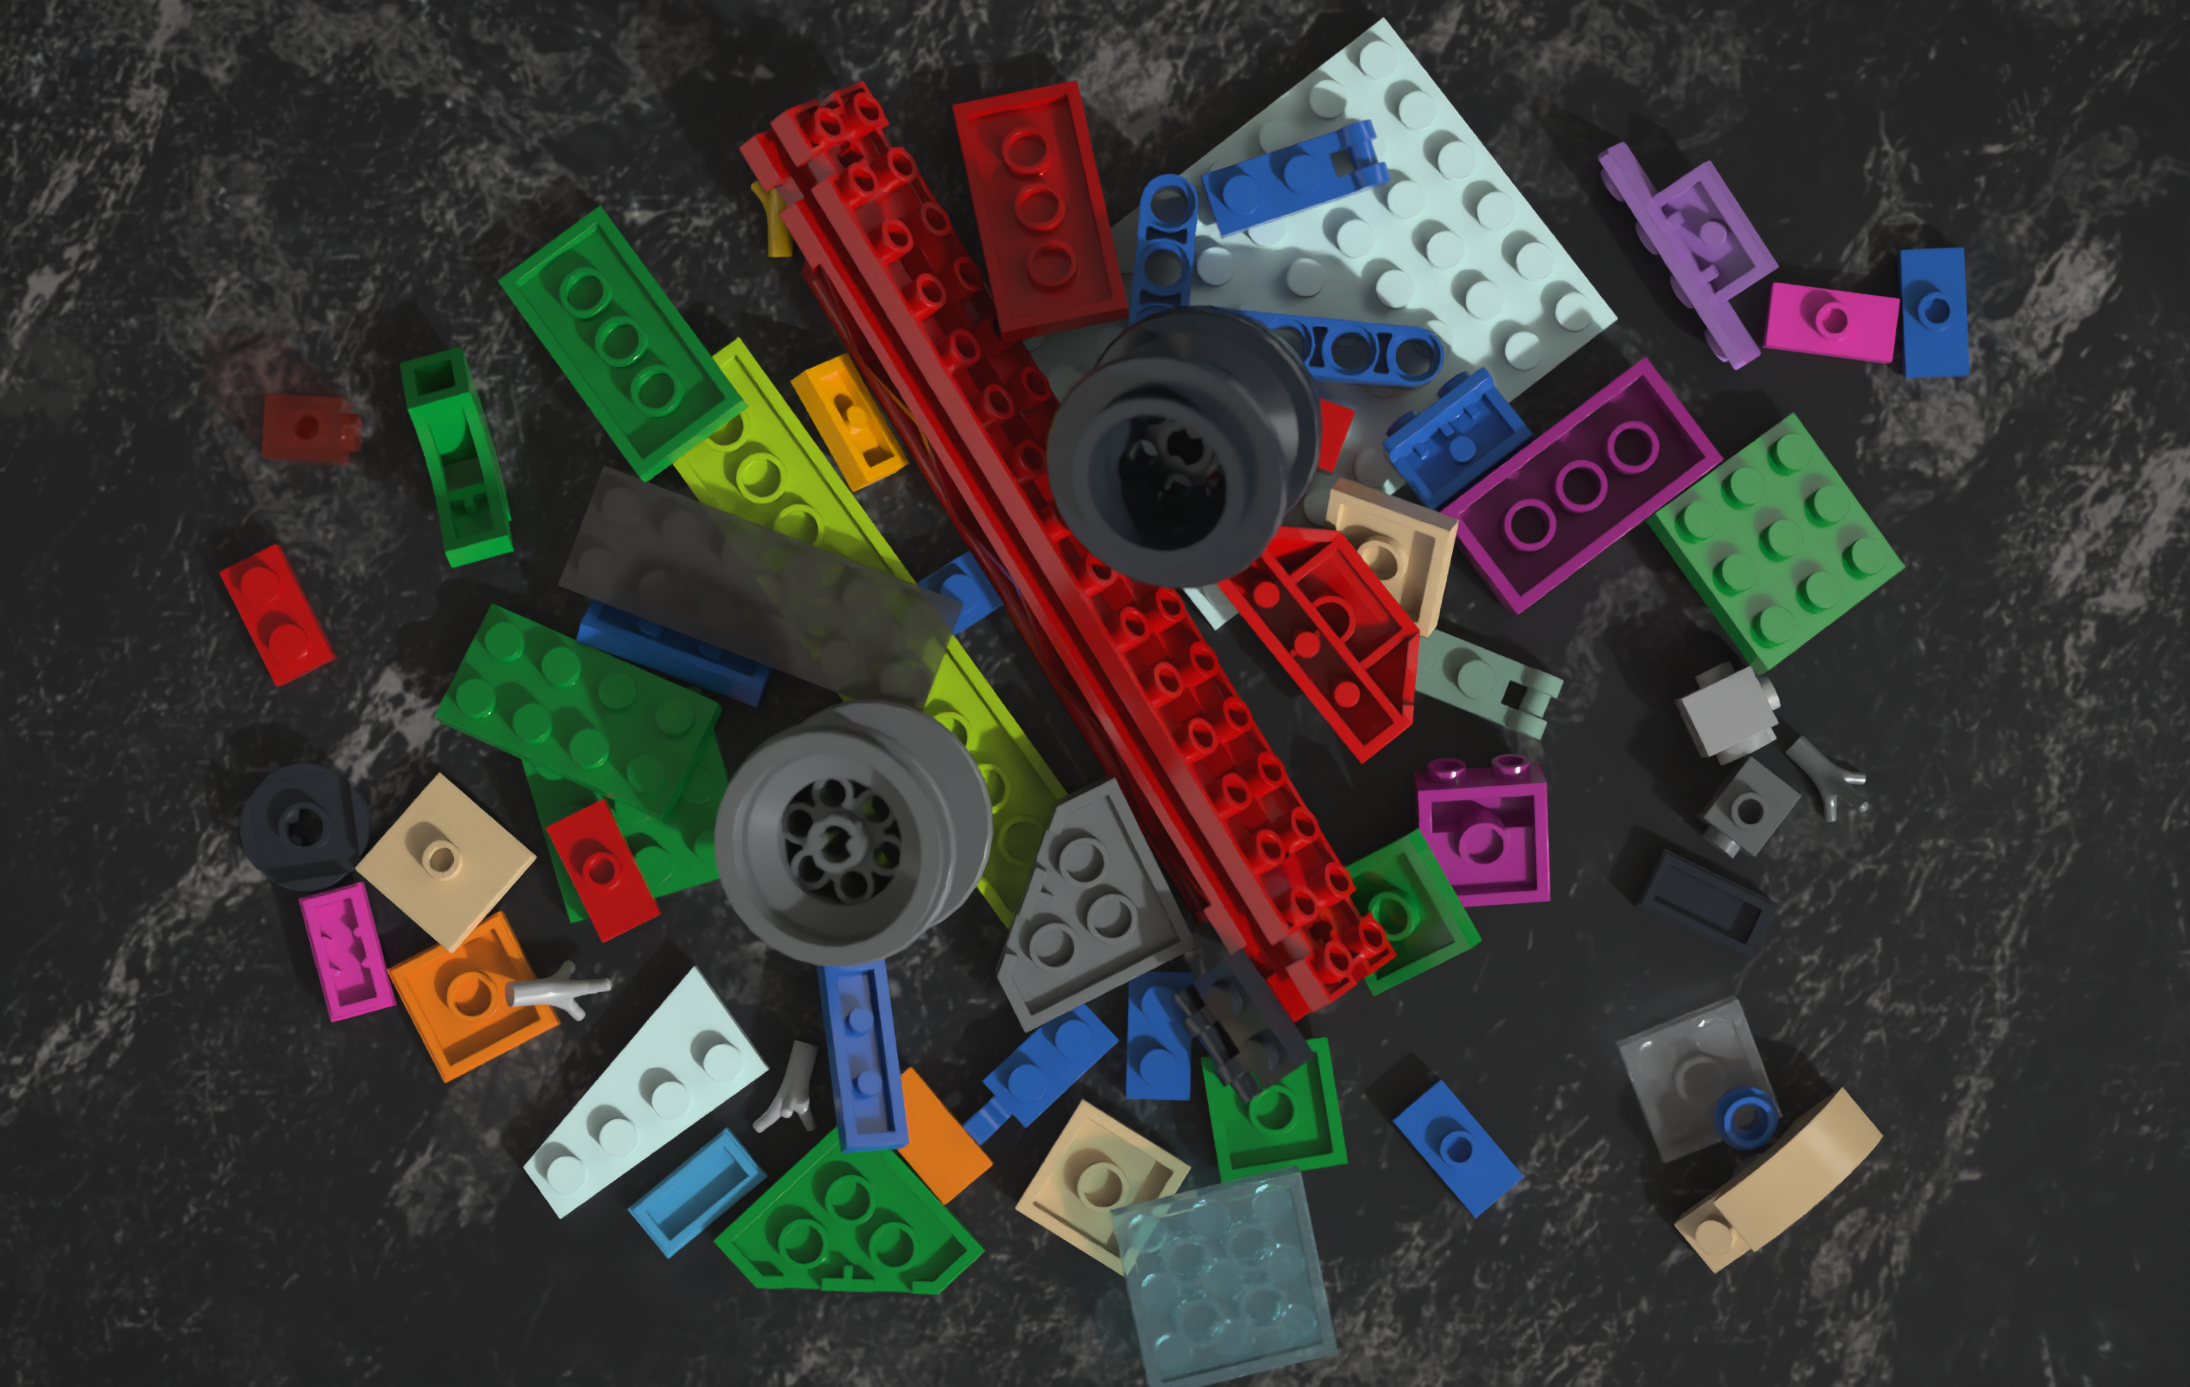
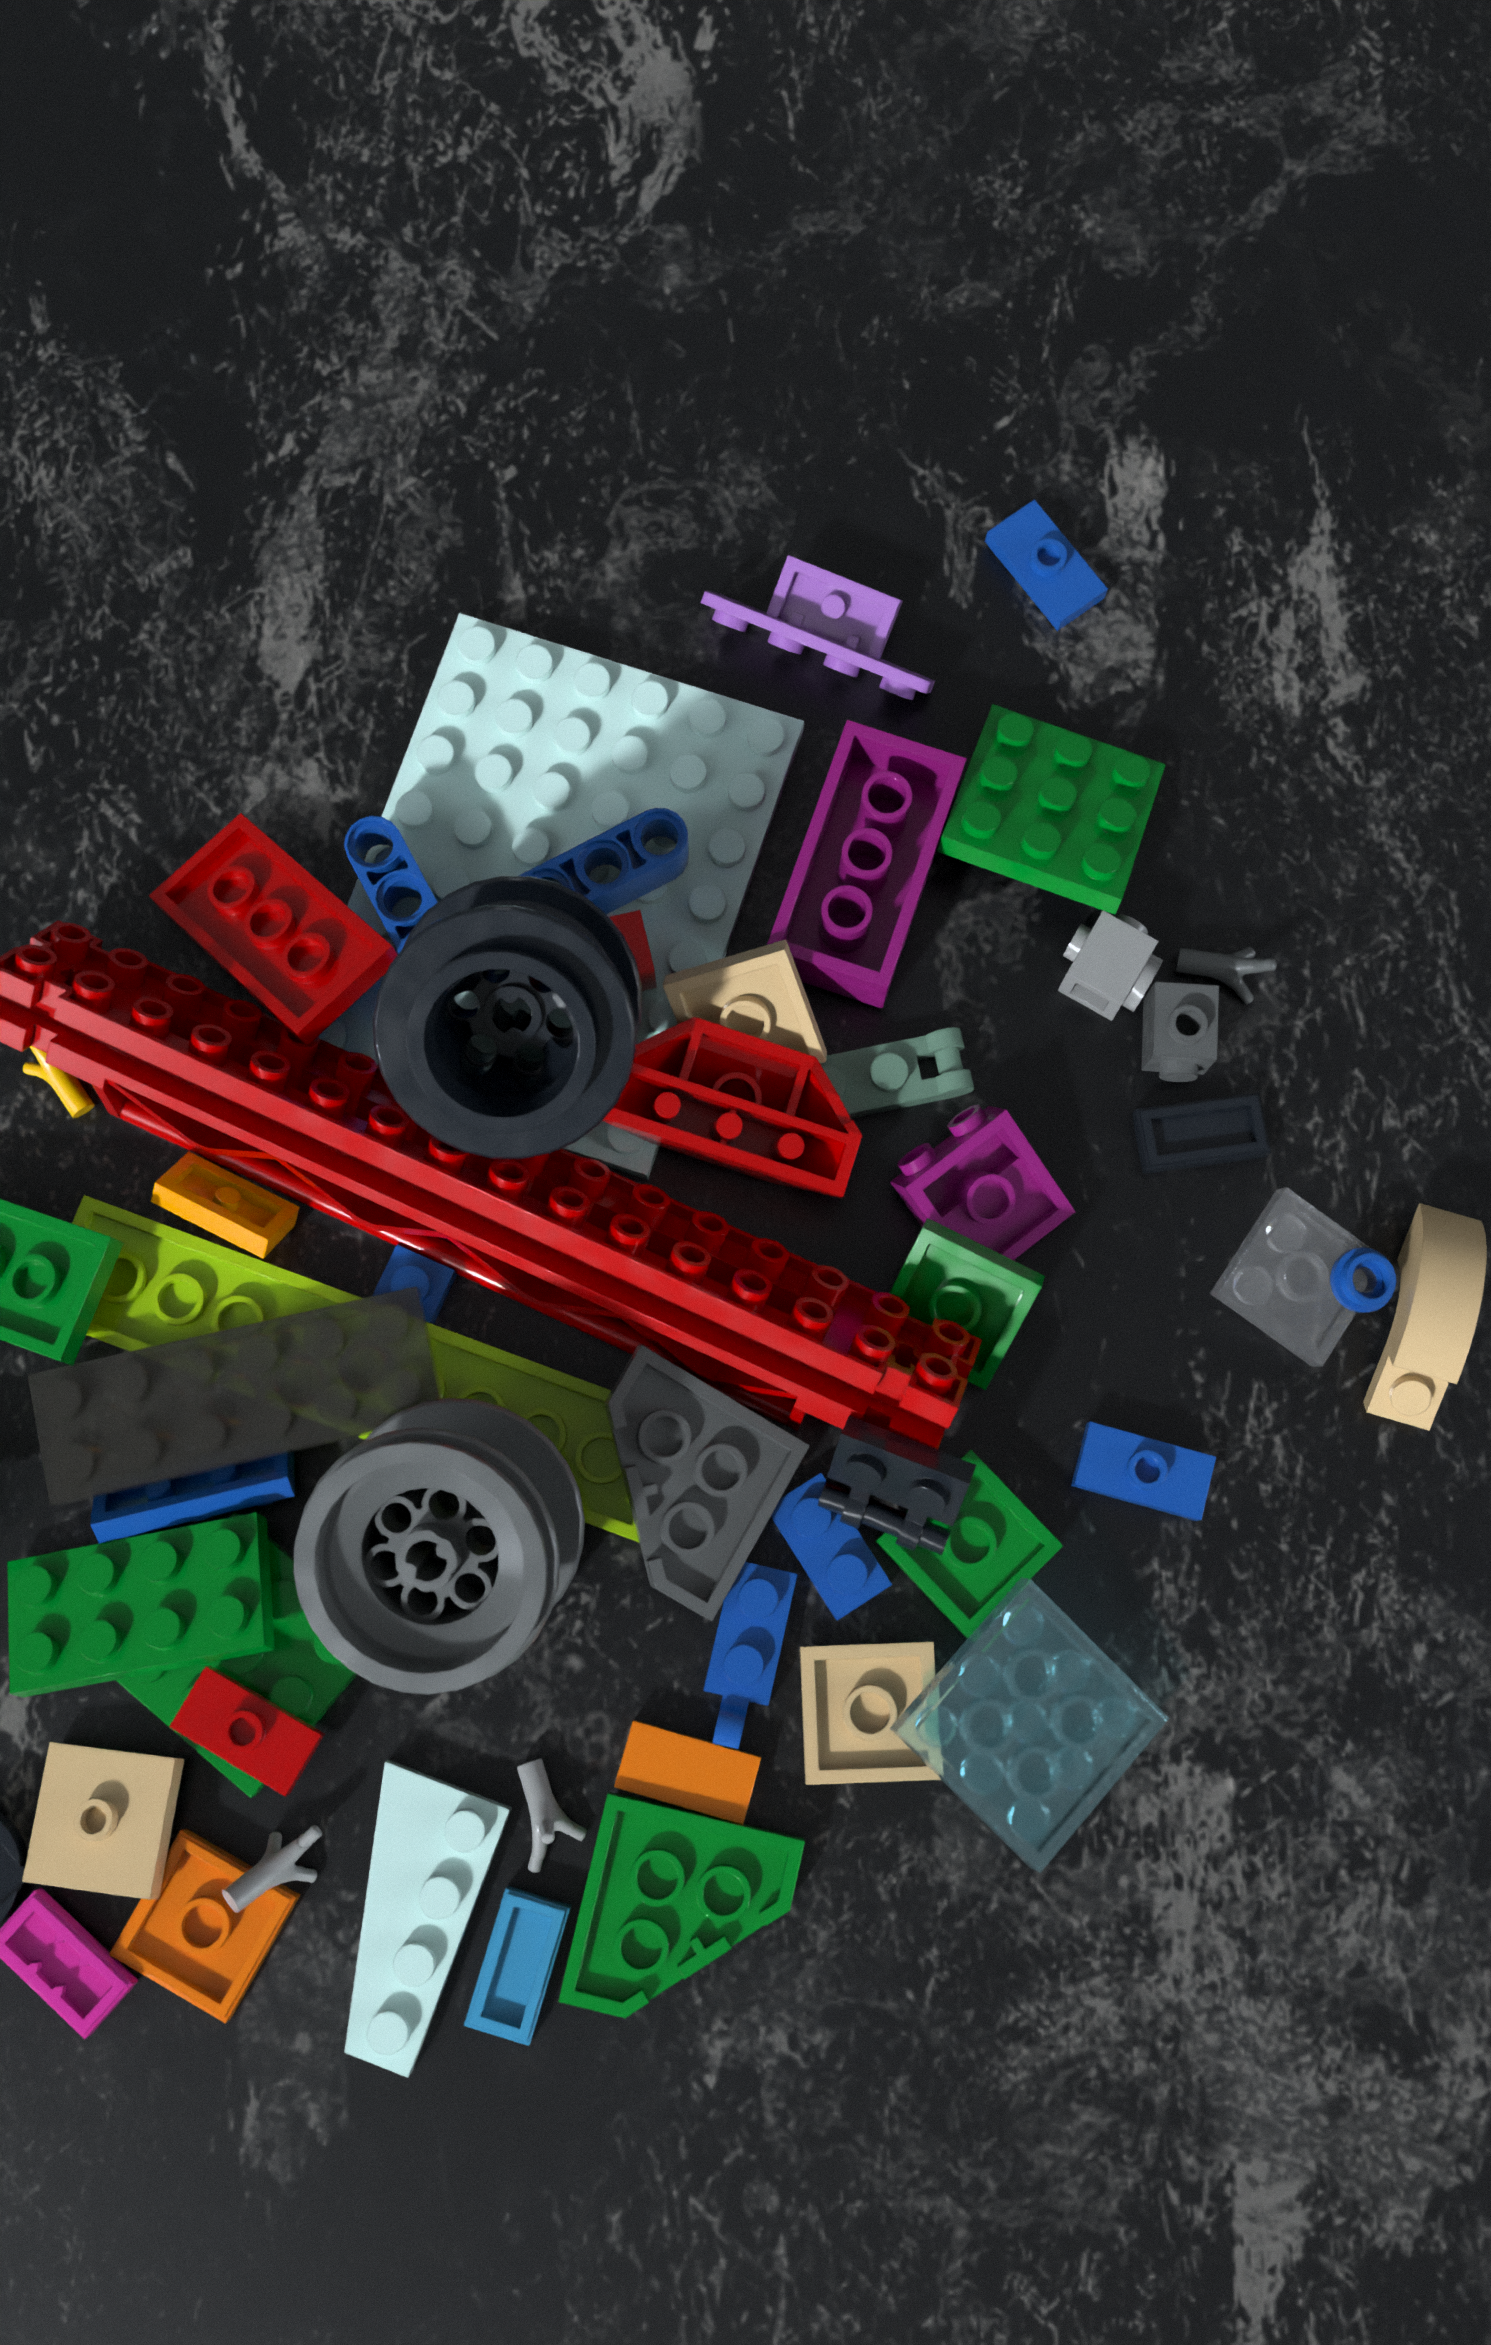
camera: 35 degrees left, 10 degrees down
(863, 1057) = (583, 1739): blue plate -> none
(1293, 179) = (468, 773): blue plate -> none
(1455, 440) = (737, 886): blue bracket -> none
(1831, 323) = (973, 621): dark pink plate -> none

